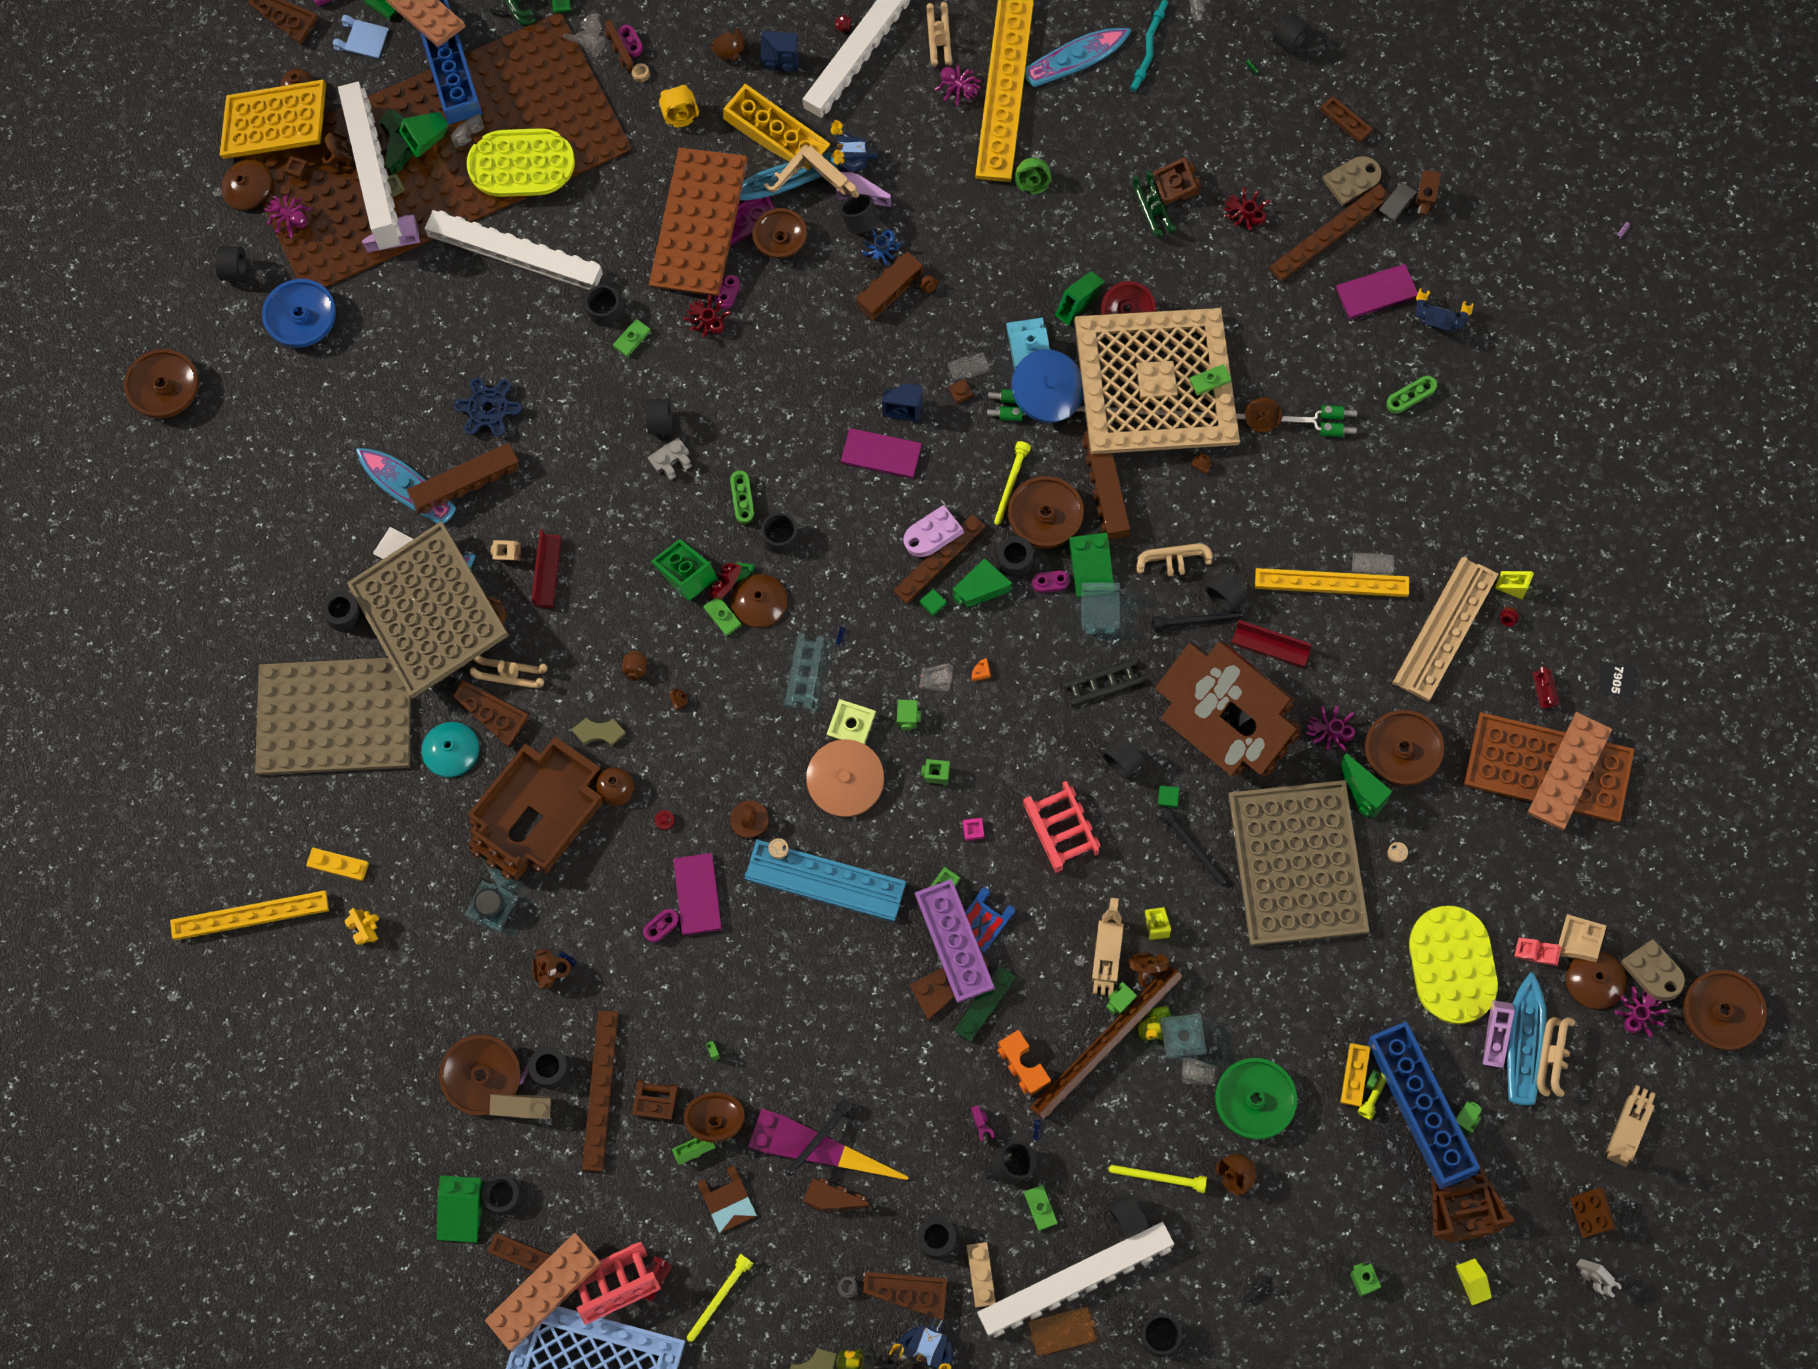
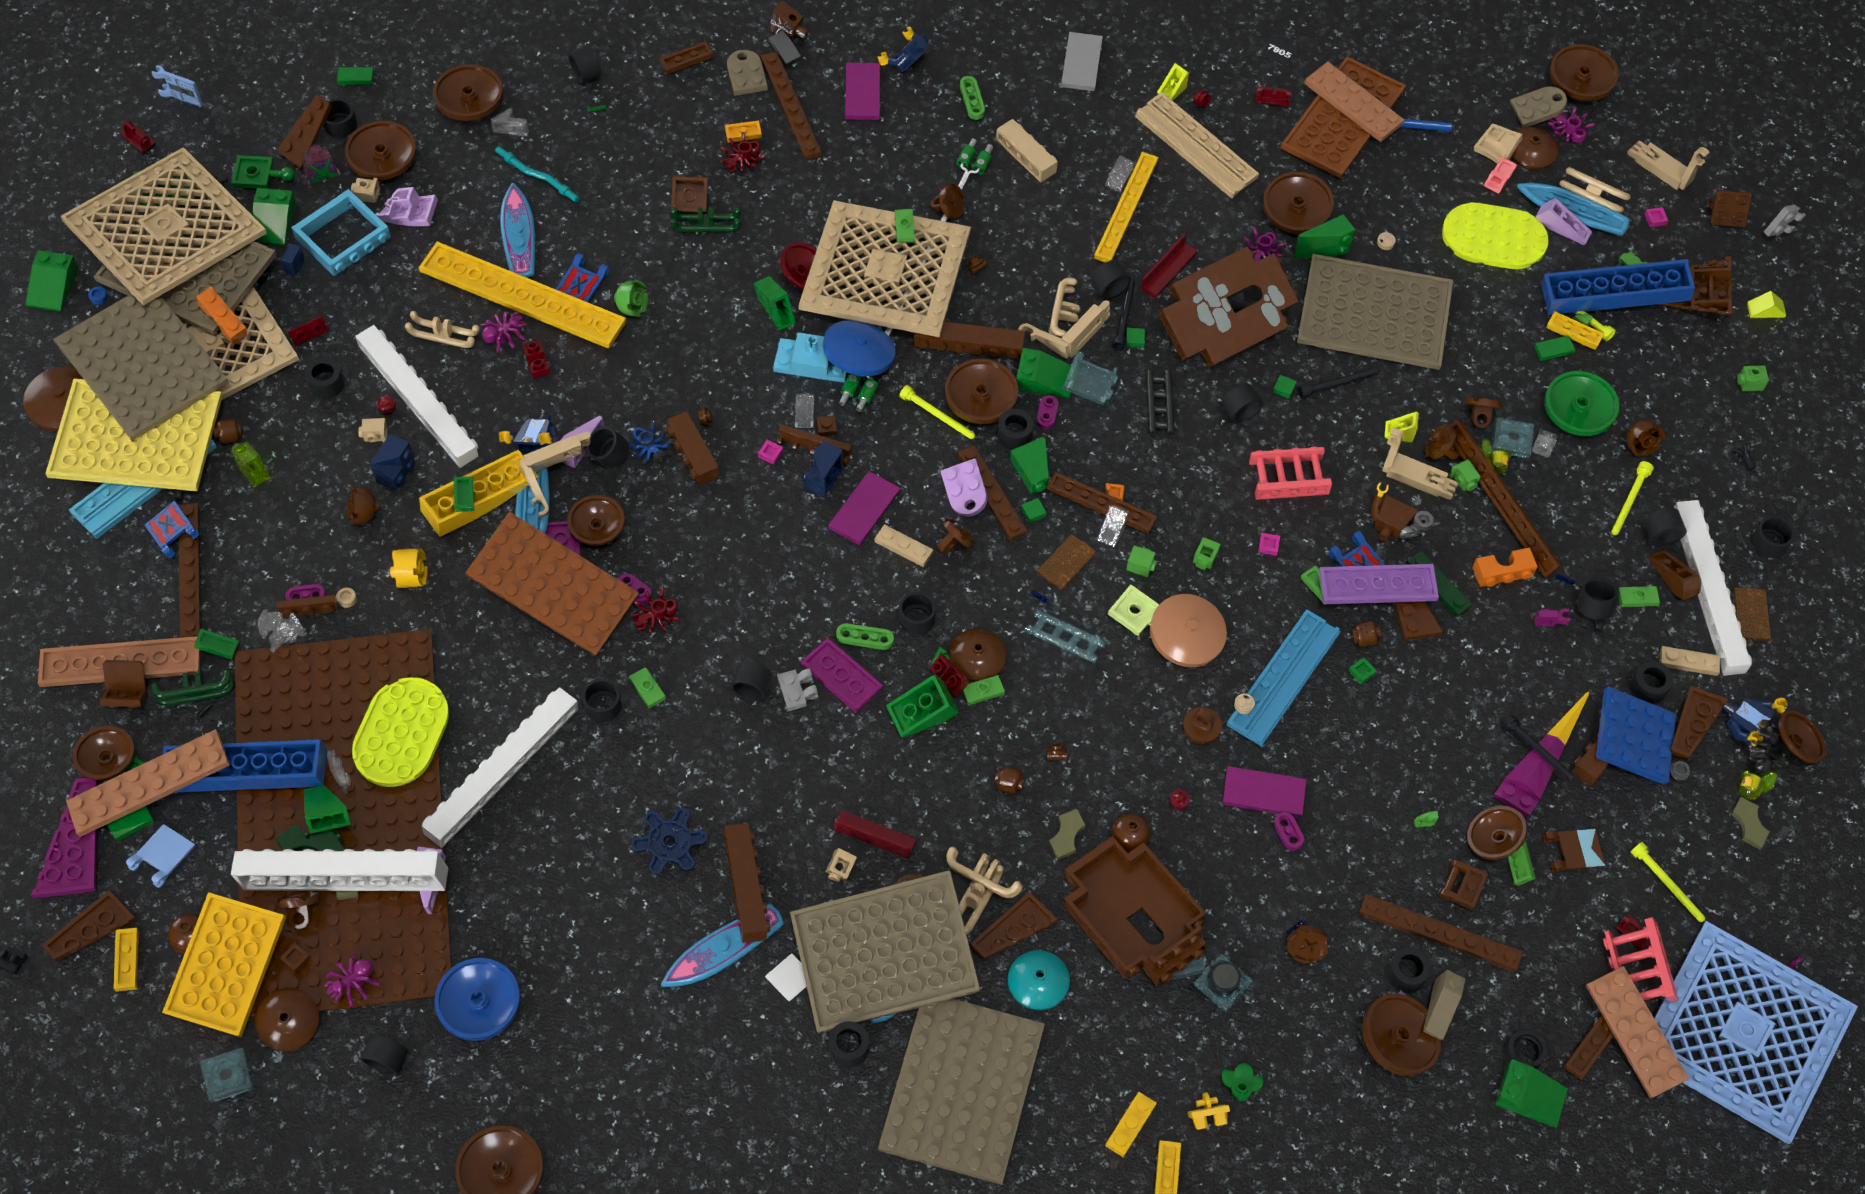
camera: 80 degrees left, 10 degrees down
(185, 161) = (226, 1075): none -> clear light blue piece
(263, 52) = (126, 959): none -> yellow plate
(404, 946) = (1243, 1079): none -> green plate
(523, 665) = (985, 880): none -> tan piece
(698, 492) = (842, 675): none -> magenta tile
(761, 116) = (463, 494): none -> green tile
(812, 25) = (373, 430): none -> tan brick
(852, 500) = (903, 545): none -> tan plate
(859, 953) = (1362, 671): none -> green tile
(867, 1232) = (1635, 735): none -> blue plate
(874, 539) = (955, 535): none -> reddish brown tile
(887, 649) = (1066, 562): none -> clear orange piece
(898, 945) = (1366, 633): none -> reddish brown head
(913, 353) = (770, 452): none -> dark pink tile
(934, 388) = (810, 441): none -> reddish brown hinge
(940, 124) = (536, 359): none -> dark red slope
(962, 660) = (1100, 501): none -> reddish brown plate
(1040, 126) = (581, 282): none -> flag
(1043, 941) = (1396, 518): none -> reddish brown torso
(1078, 1238) = (1676, 575): none -> reddish brown slope
(1151, 581) = (1077, 335): none -> tan hinge
(1172, 637) = (1135, 337): none -> green tile
(1214, 997) = (1484, 407): none -> reddish brown tile
(1279, 205) = (751, 129): none -> light orange plate
(1325, 1059) = (1554, 348): none -> green tile
(1363, 466) = (1026, 150): none -> tan brick
(1510, 485) = (1081, 61): none -> light grey tile
(1553, 1134) = (1656, 217): none -> dark pink tile
(1576, 854) = (1429, 125): none -> blue piece

